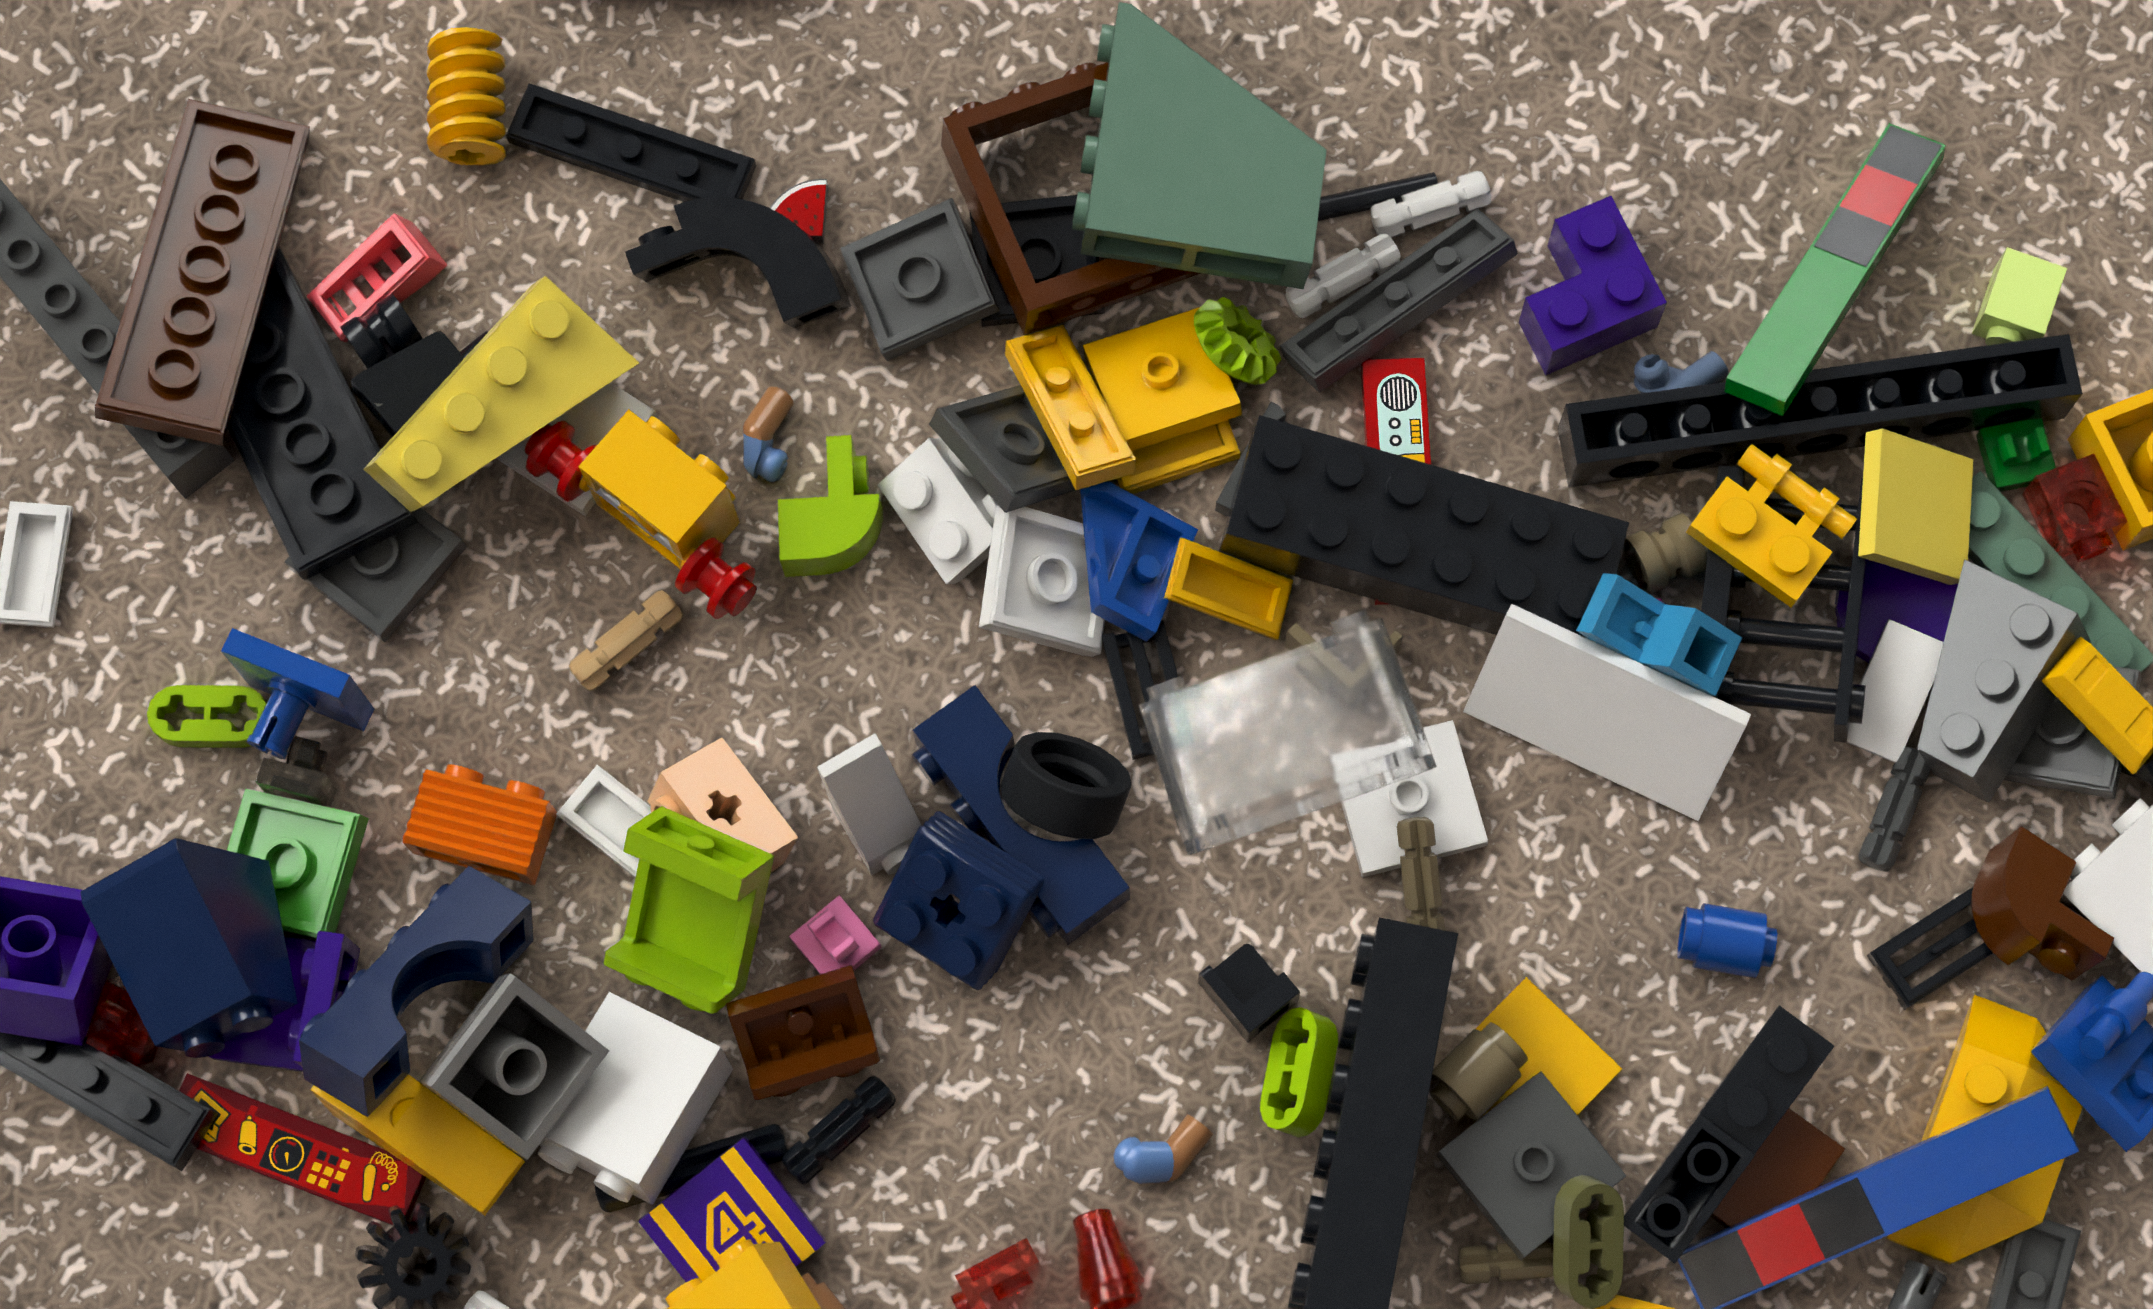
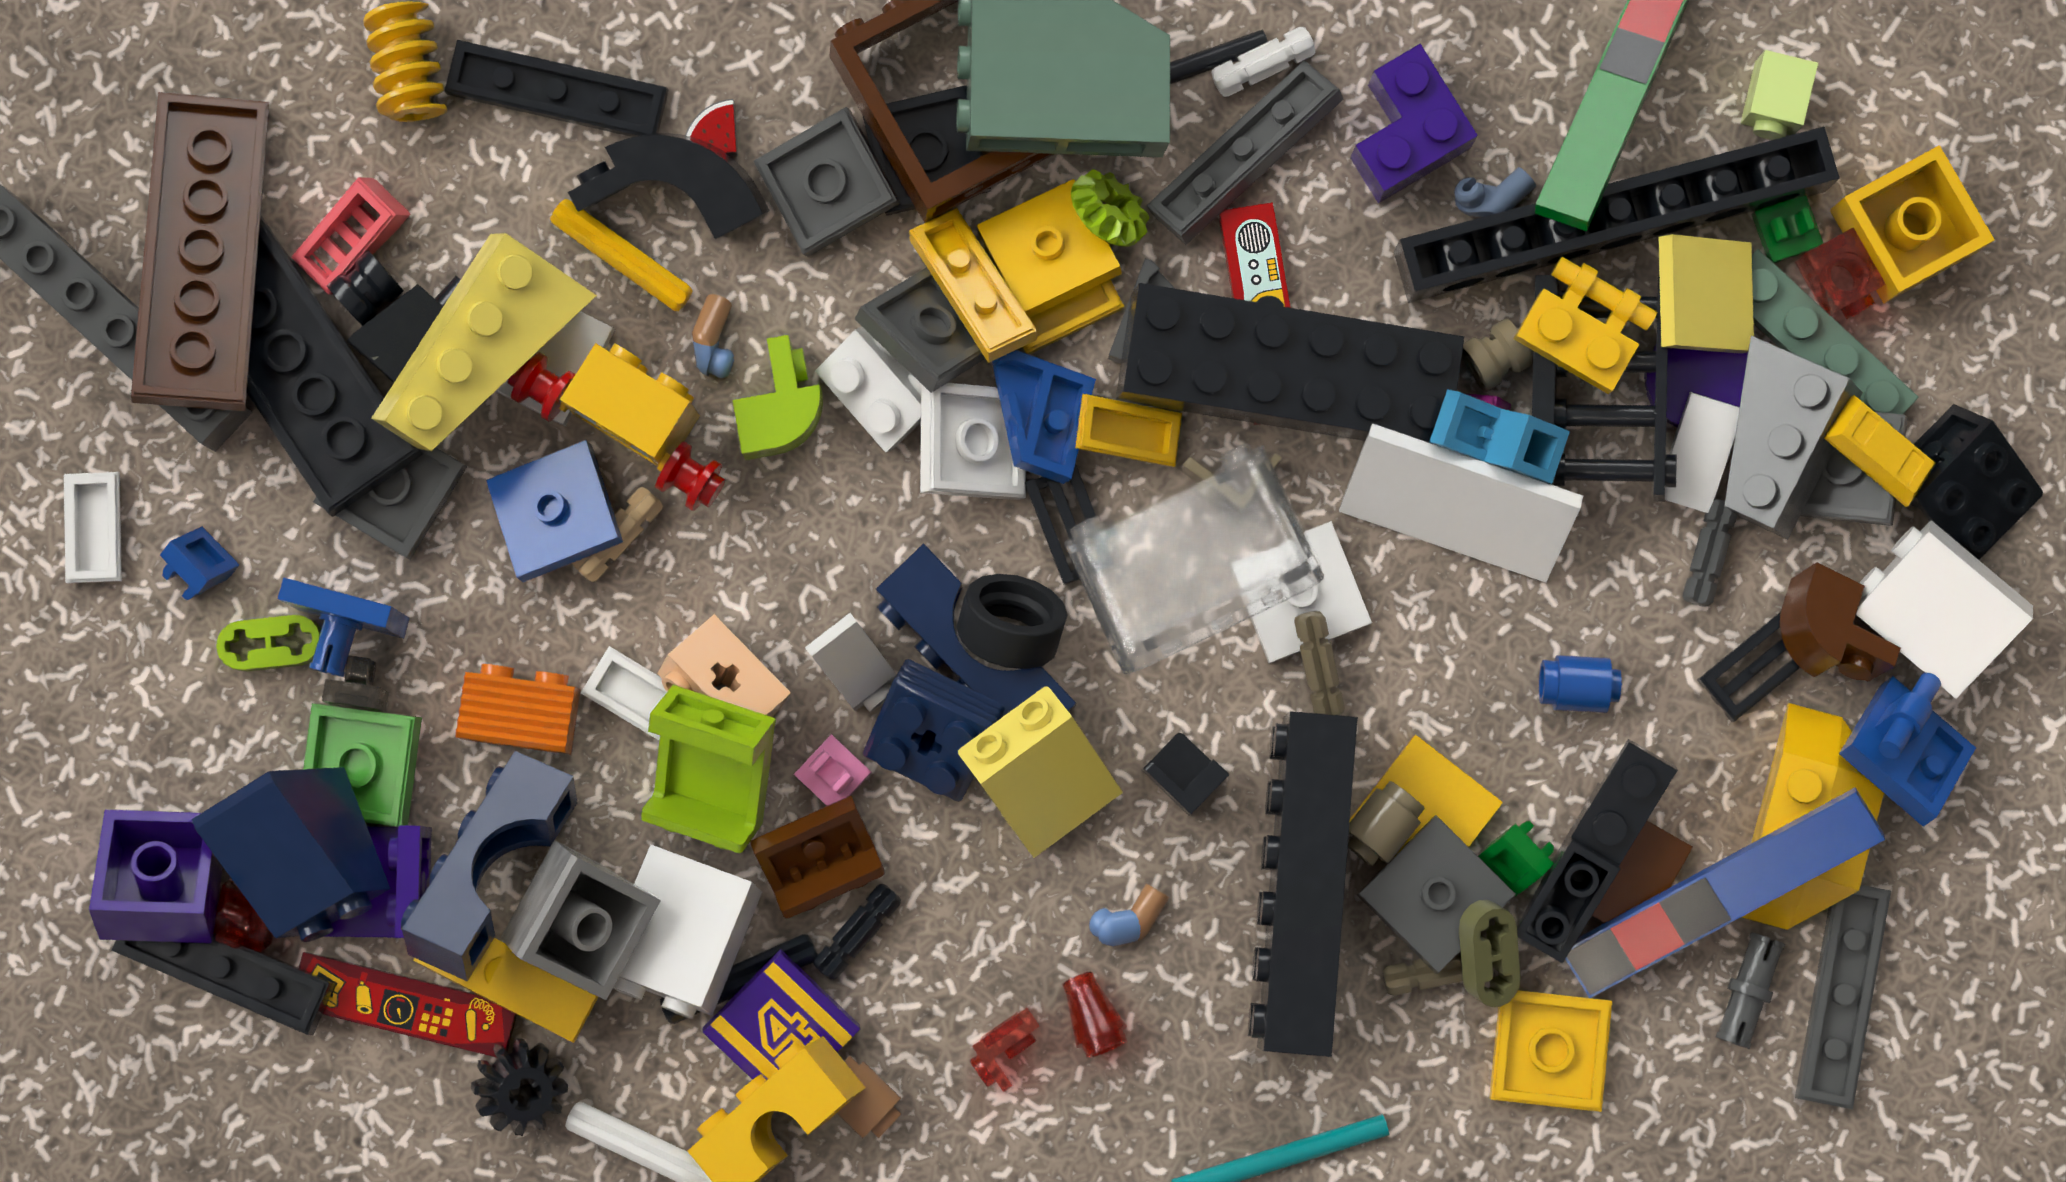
camera: 10 degrees left, 10 degrees up
(143, 613) = (197, 561): none -> blue tile
(557, 604) = (554, 511): none -> plate
(676, 334) = (621, 255): none -> yellow axle
(1077, 959) = (1040, 771): none -> light yellow panel
(1299, 1072) = (1235, 838): lime beam -> none
(1344, 275) = (1197, 133): white axle -> none
(1634, 1134) = (1517, 857): none -> green tile

